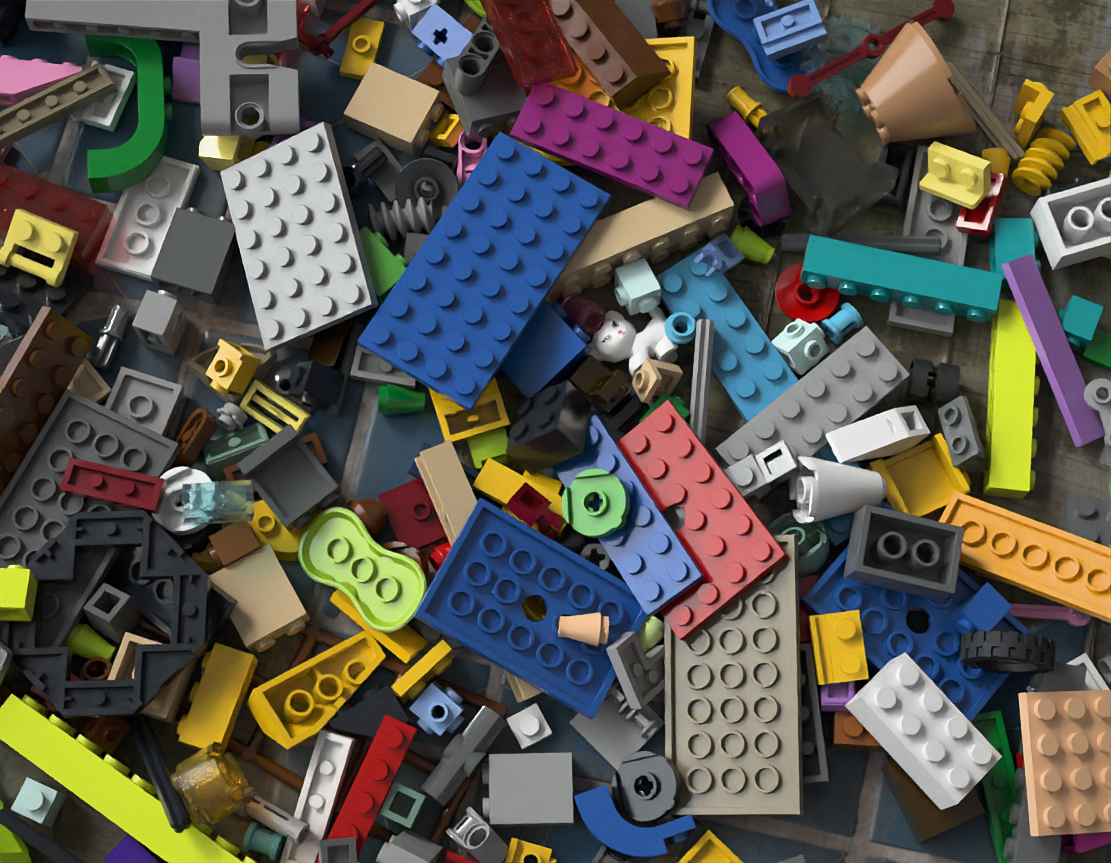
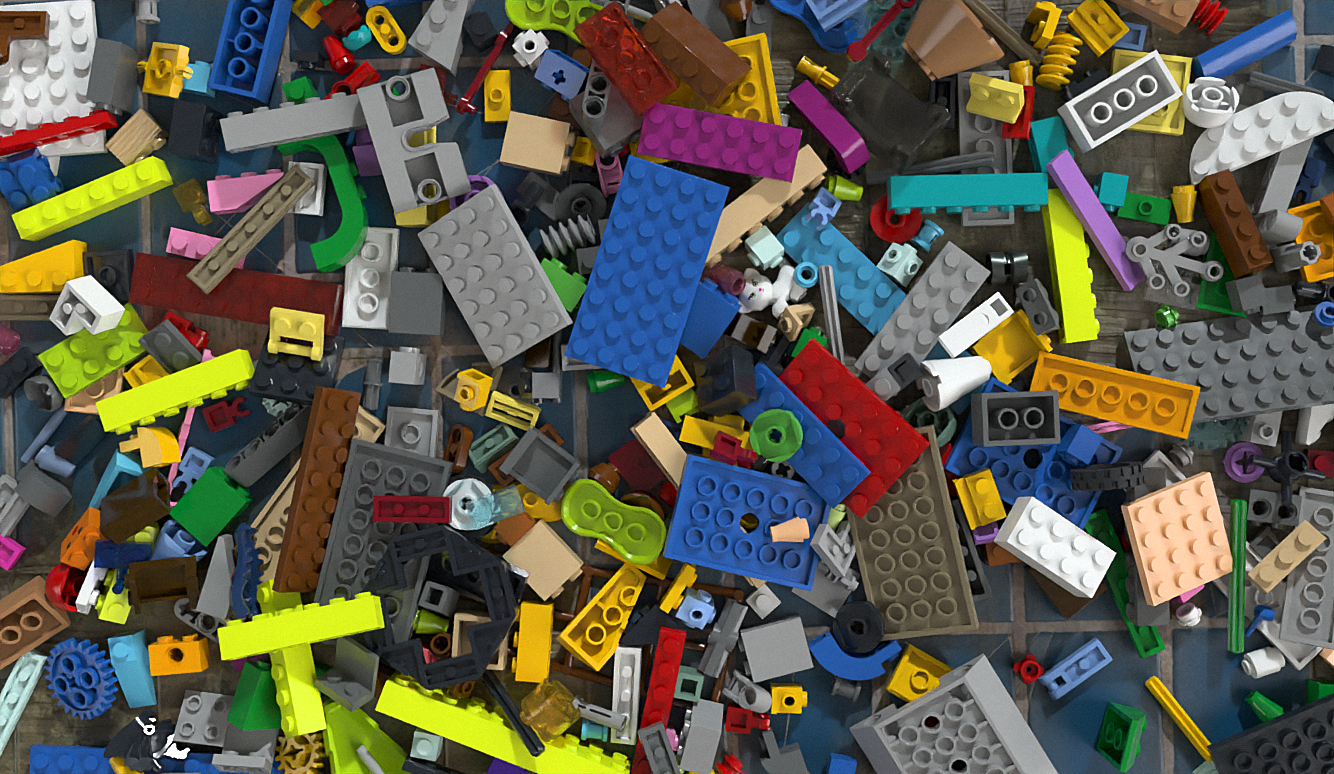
camera: 10 degrees left, 15 degrees up
(231, 417) = (482, 424): light grey plate -> none

